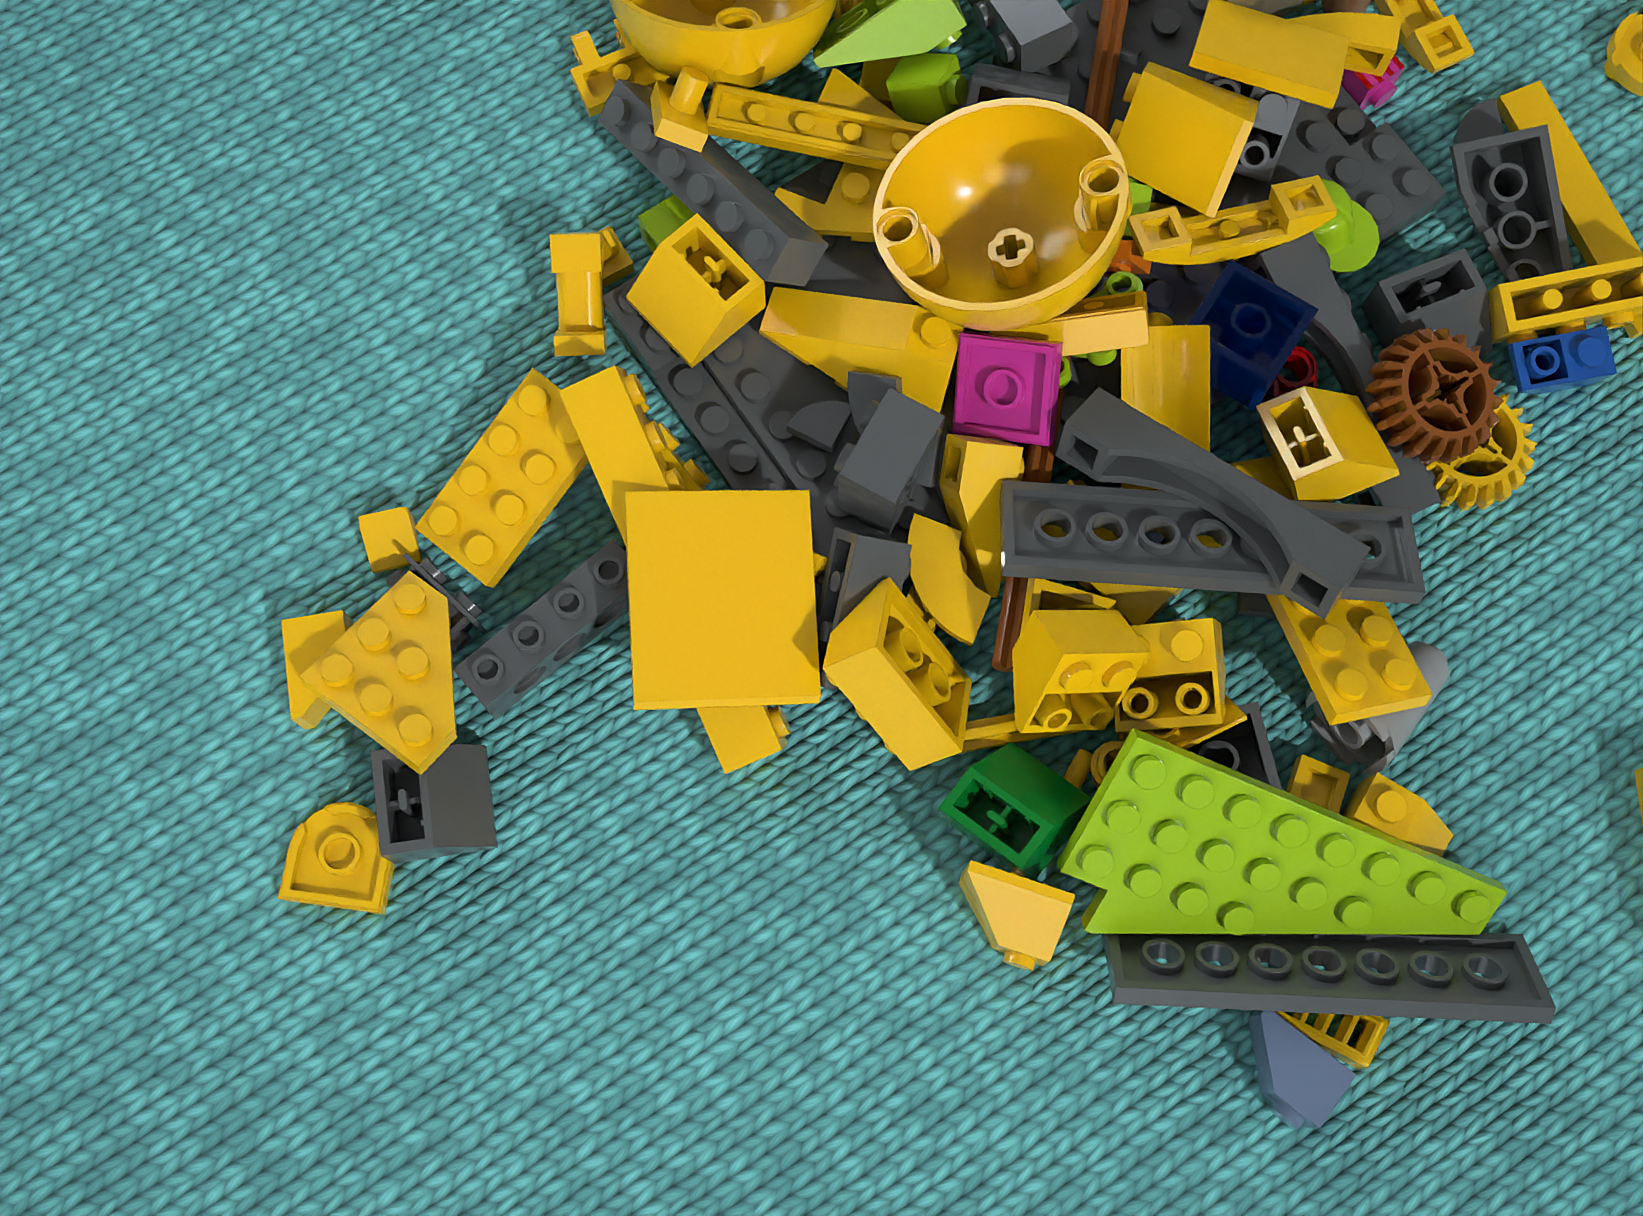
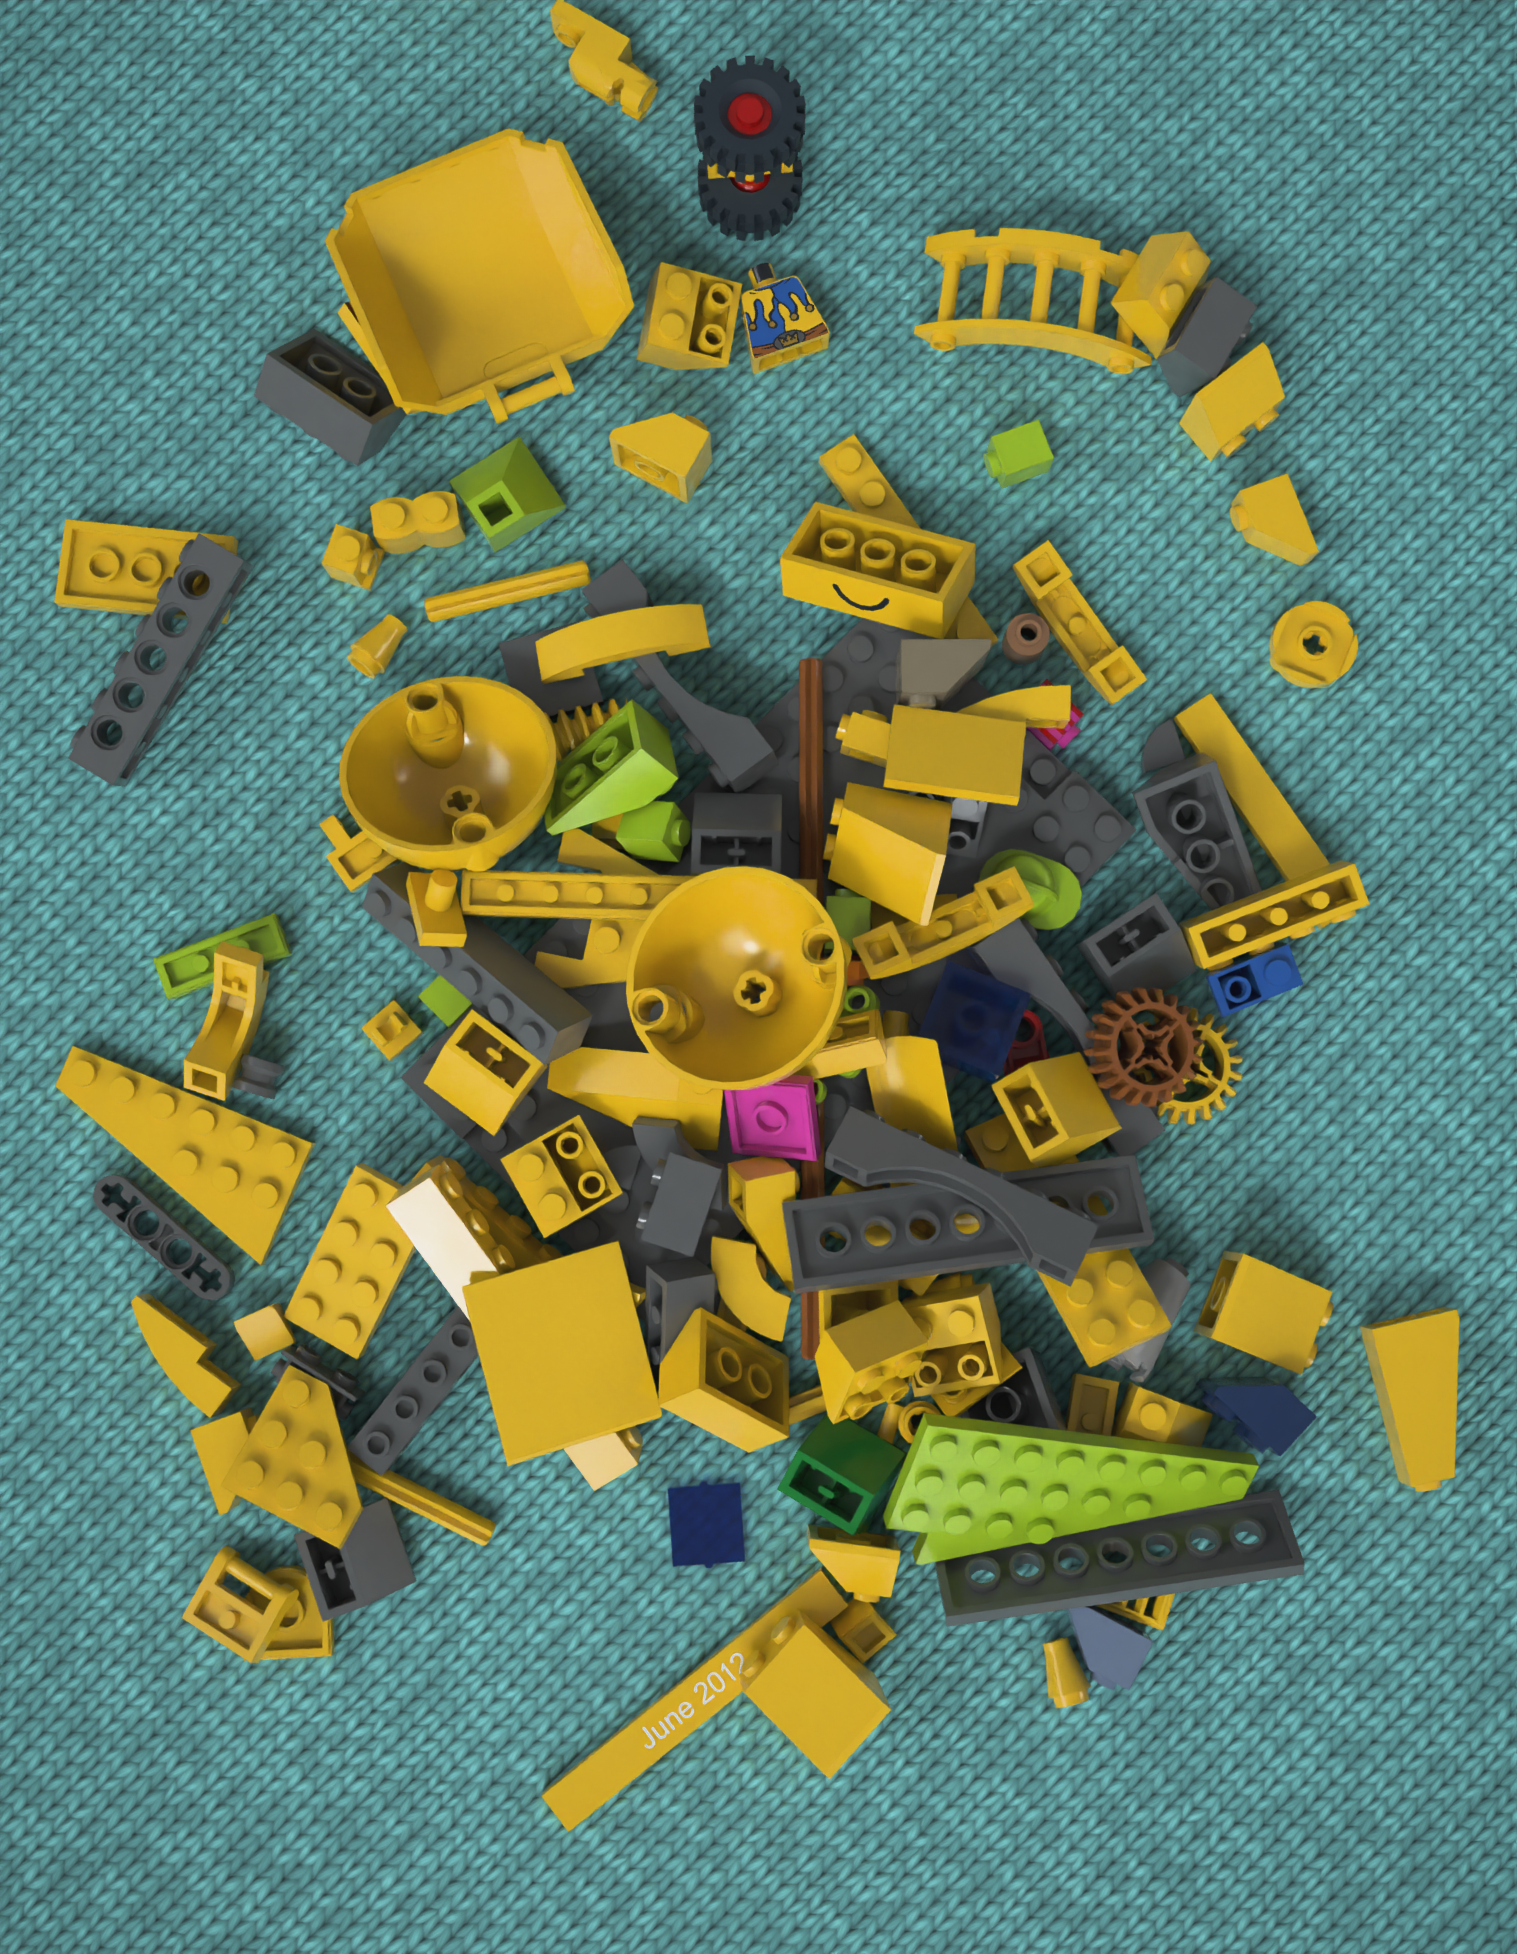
camera: 10 degrees left, 10 degrees up
(277, 842) = (230, 1616): none -> yellow plate
(295, 547) = (184, 1355): none -> yellow slope
(304, 422) = (167, 1232): none -> dark grey beam
(378, 350) = (211, 1155): none -> yellow wing
(431, 216) = (230, 1021): none -> yellow arch
(436, 155) = (193, 965): none -> lime tile
(447, 273) = (258, 1076): none -> dark grey wheel
(525, 759) = (424, 1502): none -> yellow axle
(578, 270) = (390, 1107): yellow piece -> none
(759, 414) = (561, 1176): none -> yellow slope
(791, 1049) = (681, 1708): none -> yellow tile
(844, 849) = (706, 1524): none -> clear blue piece
(941, 1052) = (814, 1691): none -> yellow slope
(1006, 1003) = (862, 1629): none -> yellow slope
(1169, 38) = (865, 736): none -> yellow brick
(1240, 1103) = (1064, 1674): none -> yellow cone
(1512, 825) = (1263, 1409): none -> dark blue slope
(1531, 722) = (1264, 1311): none -> yellow slope

